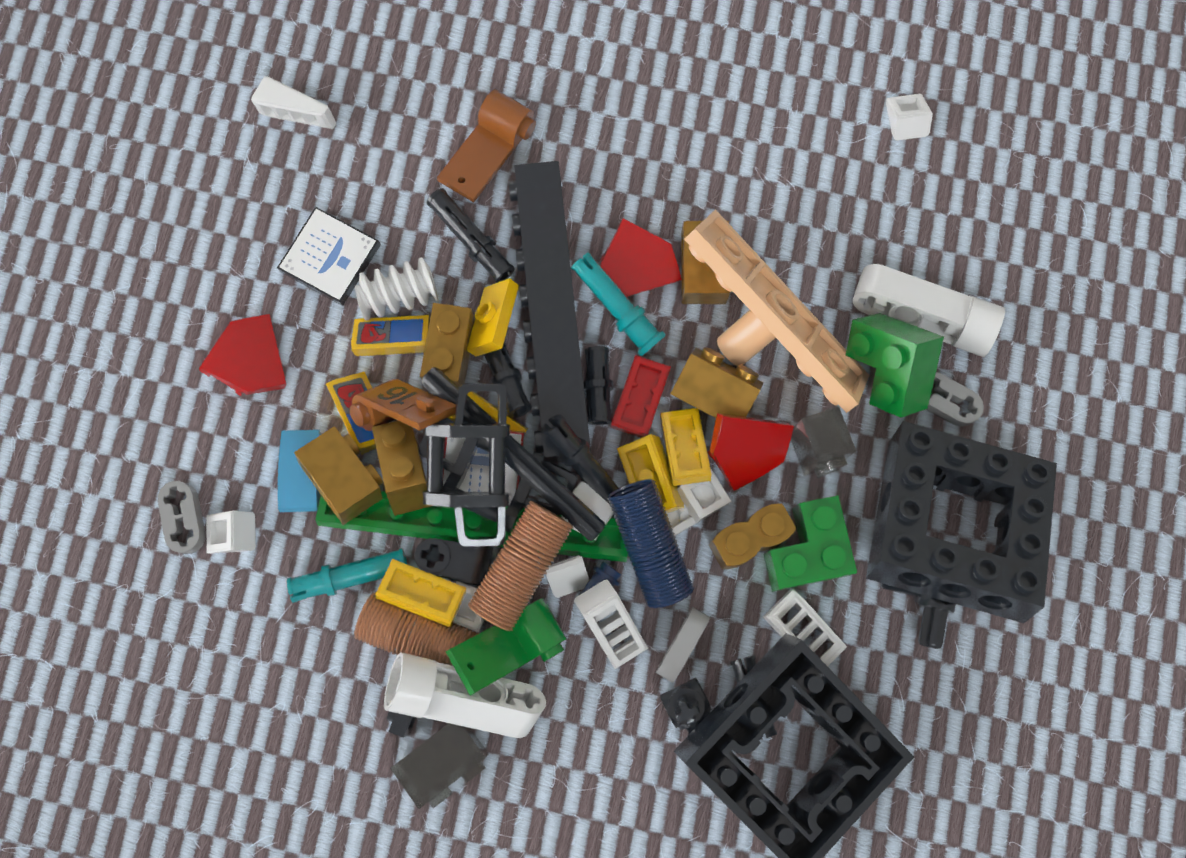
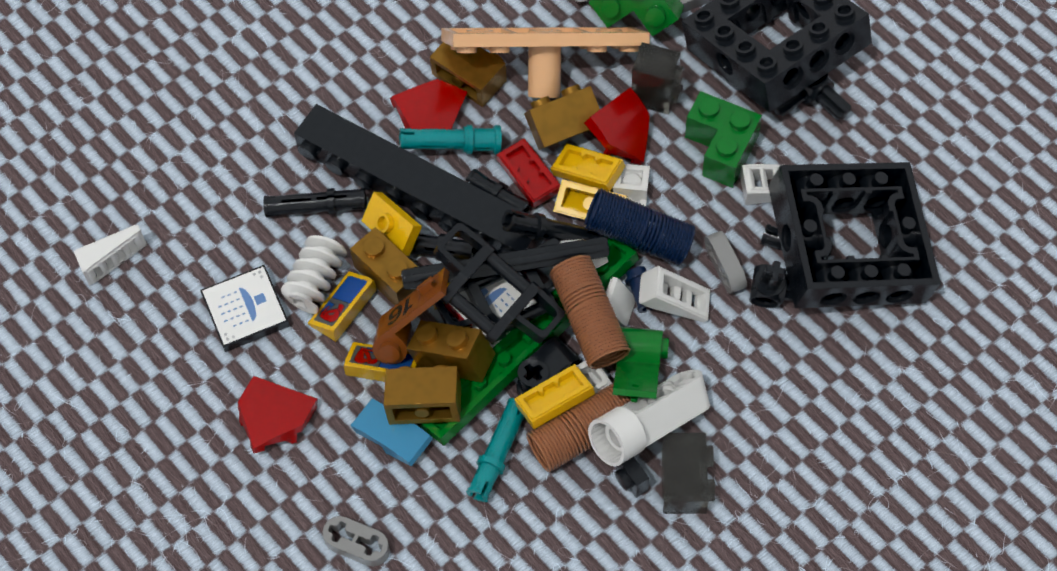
camera: 50 degrees left, 15 degrees down
(230, 532) = (395, 515): white slope -> none
(499, 131) = (258, 146): dark orange door -> none
(745, 539) = (685, 167): pearl gold brick -> none

